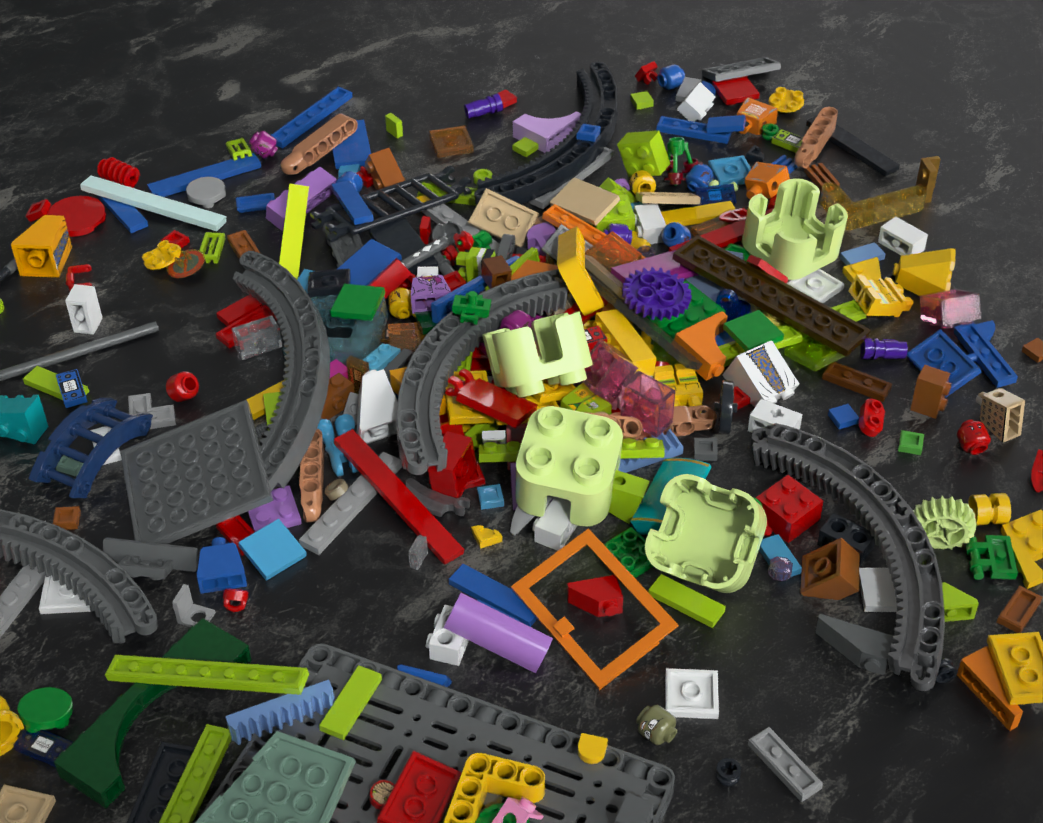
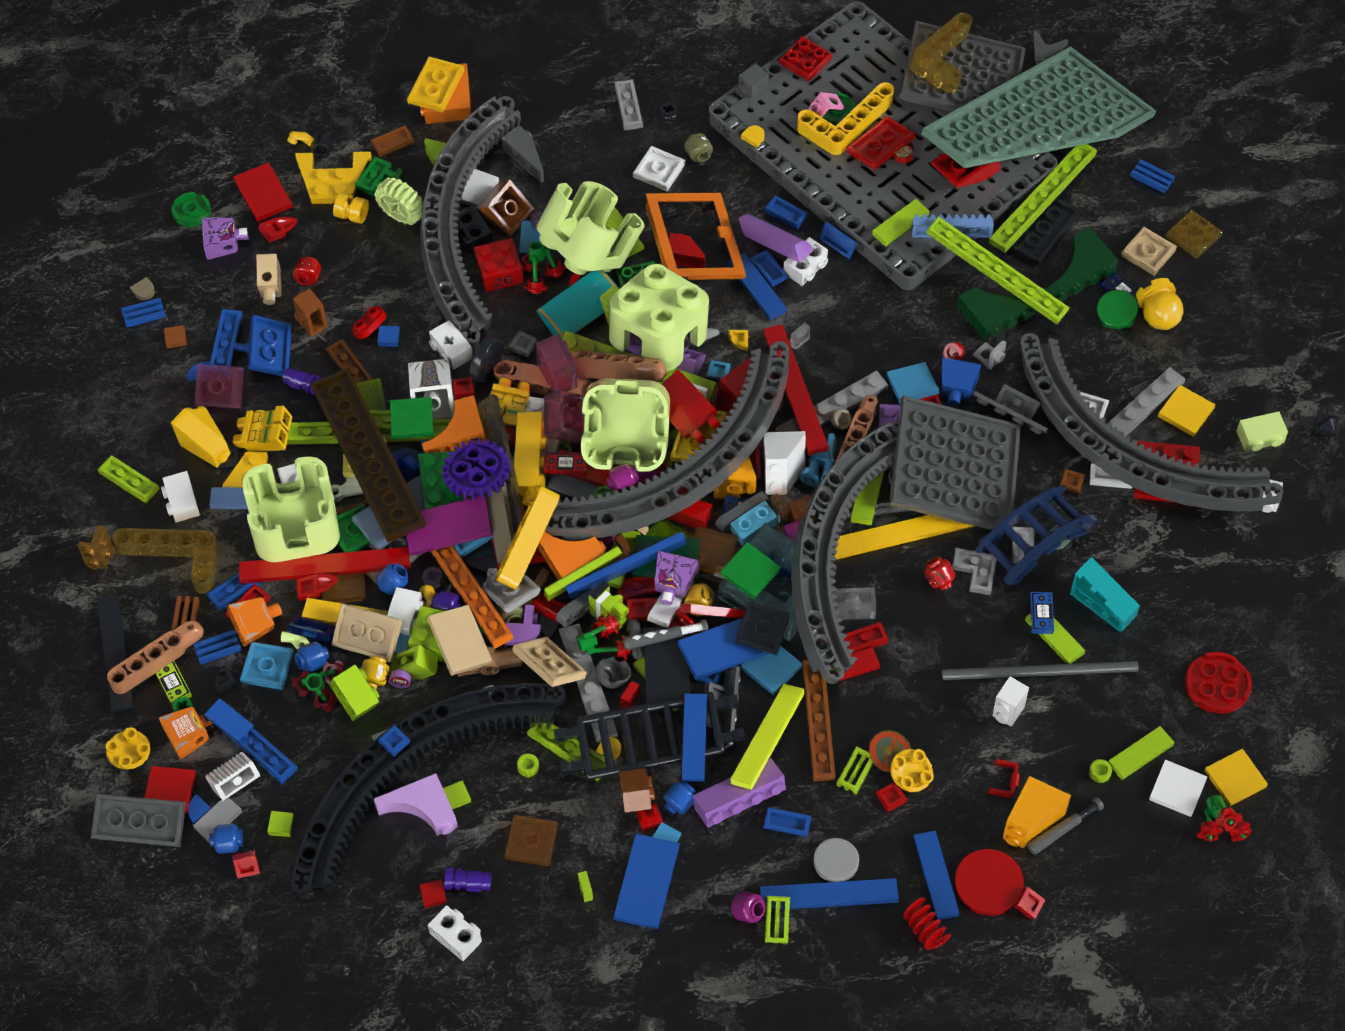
camera: 155 degrees left, 15 degrees up
(153, 203) = (901, 859): light aqua tile -> none
(311, 116) = (670, 958): blue tile -> none
(319, 143) = (686, 877): nougat piece -> none
(471, 304) = (656, 488): green piece -> none
(473, 81) = (450, 936): none -> white brick
(495, 271) = (607, 549): reddish brown brick -> none
(508, 694) = (785, 212): none -> blue tile
(613, 251) = (473, 564): clear orange tile -> none
(763, 265) = (347, 482): tile -> none
(911, 442) = (354, 293): bright green tile -> none
(960, 242) = (128, 479): none -> lime tile

